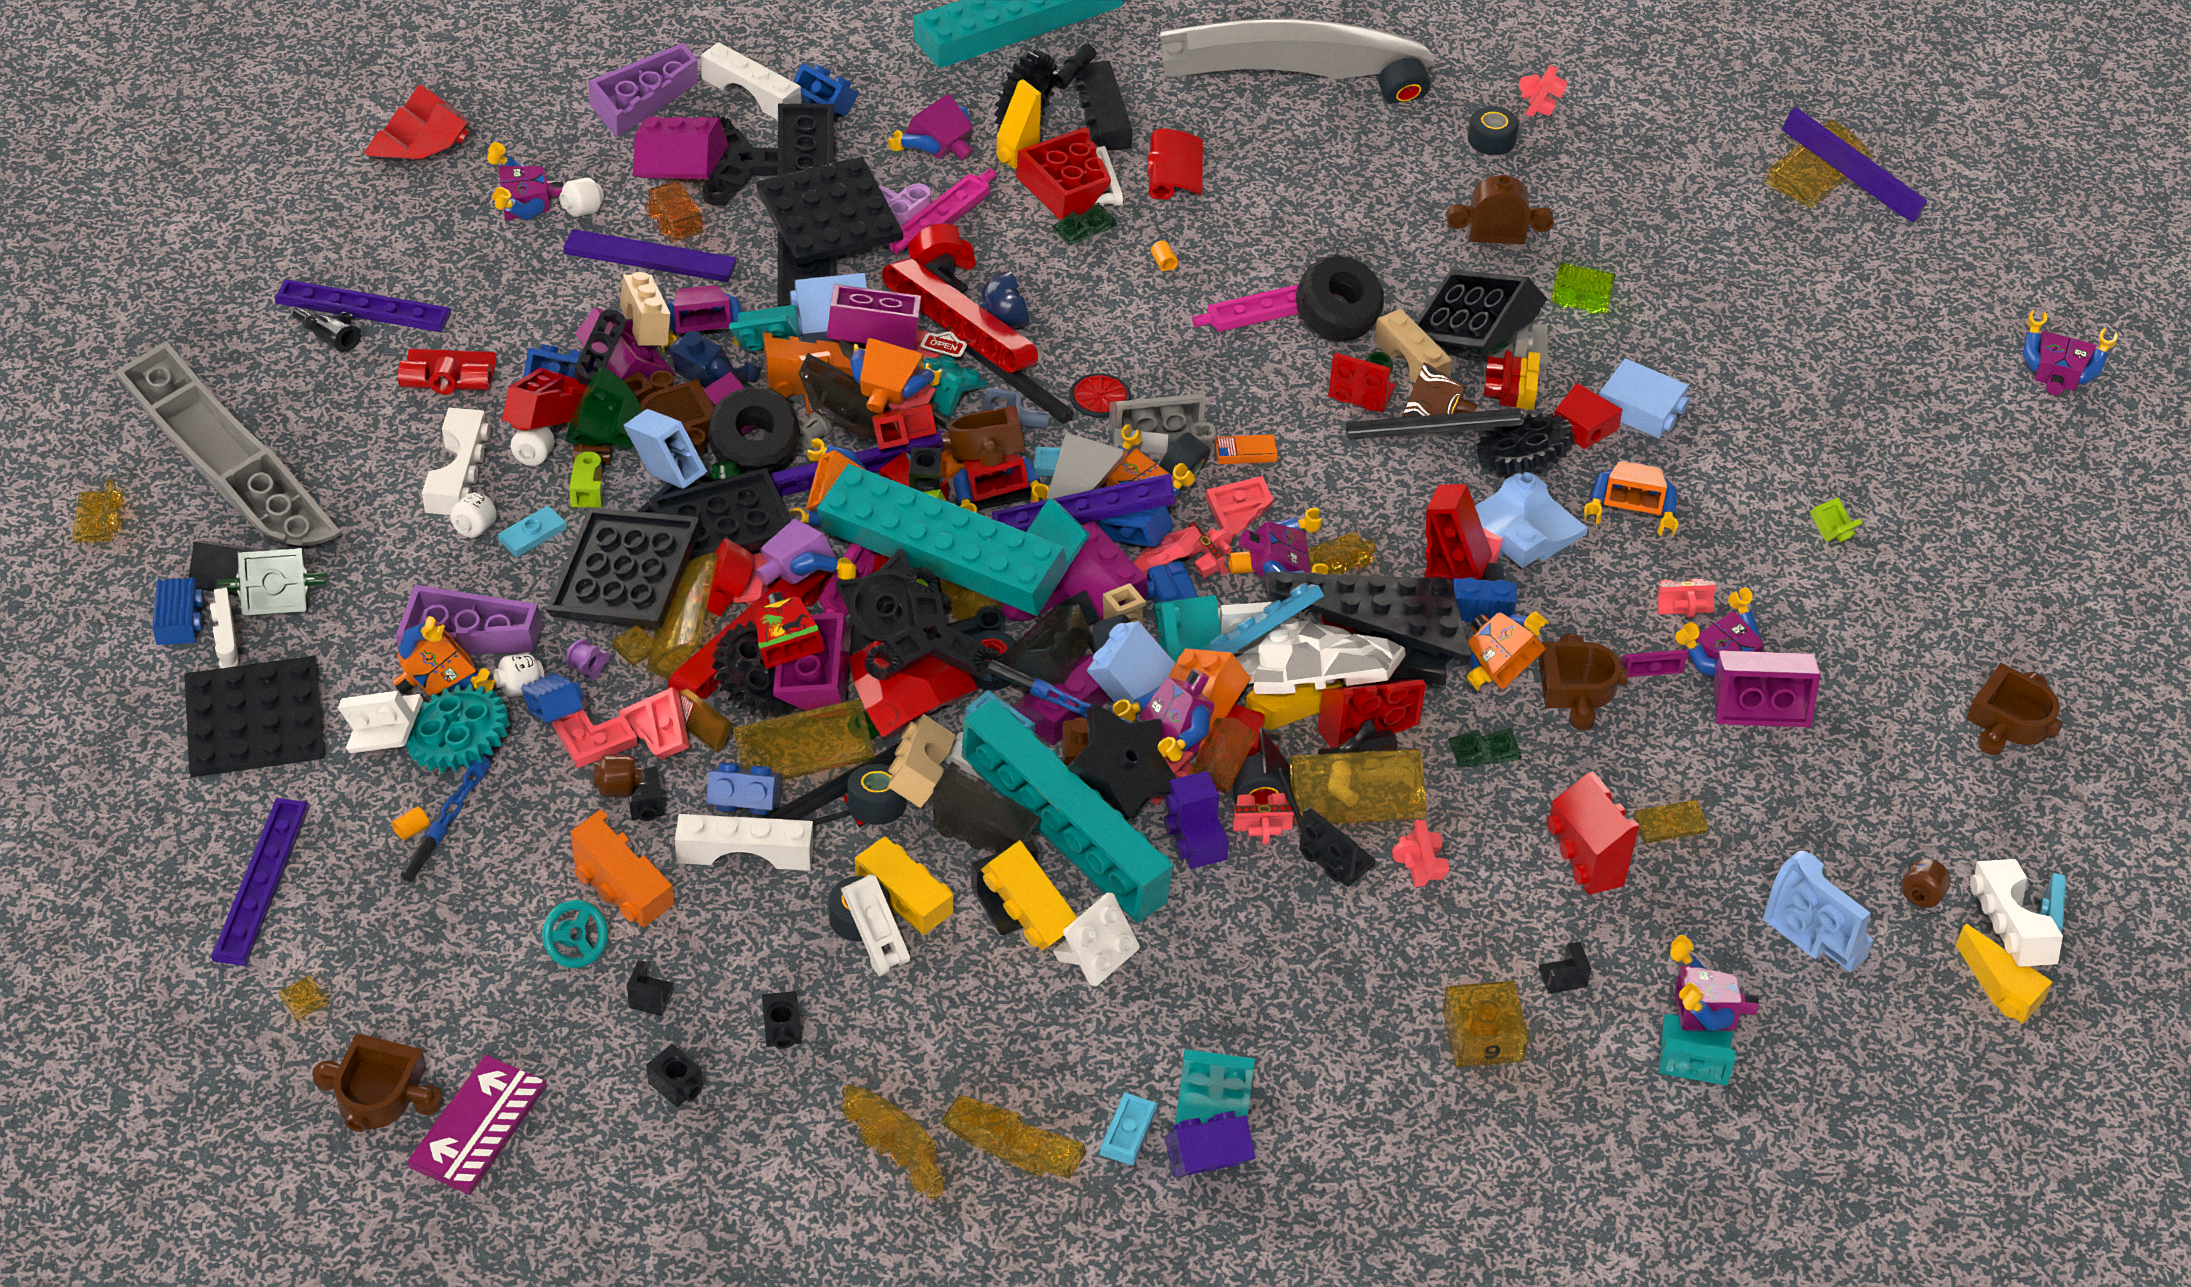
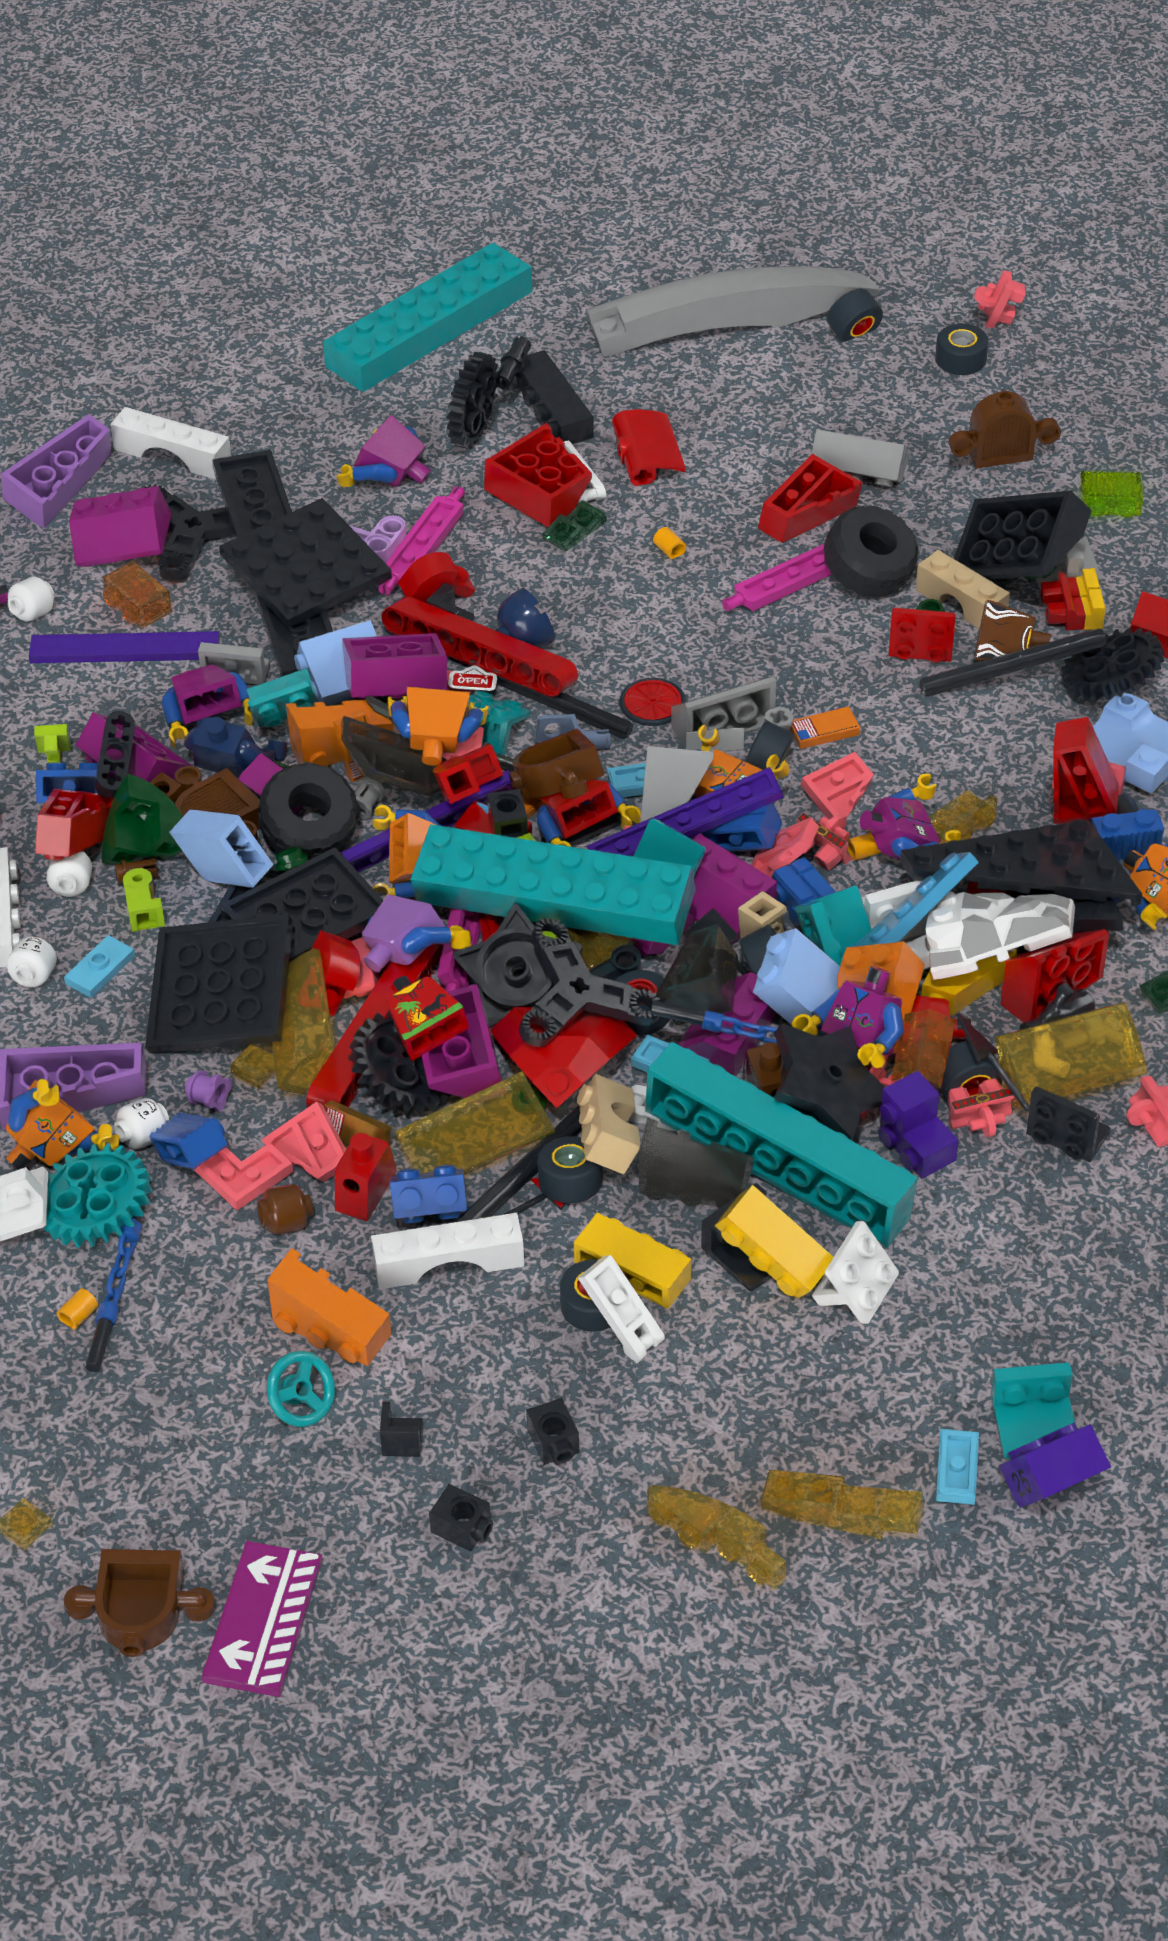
camera: 10 degrees left, 0 degrees up
(557, 326) = (52, 741): none -> lime tile
(646, 307) = (147, 701): tan arch -> none
(650, 802) = (330, 1224): black bracket -> none
(690, 760) = (366, 1164): none -> red torso
(746, 288) = (245, 661): none -> light grey bracket
(823, 89) = (252, 435): blue brick -> none
(1020, 124) = (478, 434): yellow slope -> none
(1300, 240) = (808, 499): none -> red wedge
(1362, 212) = (863, 456): none -> light grey slope

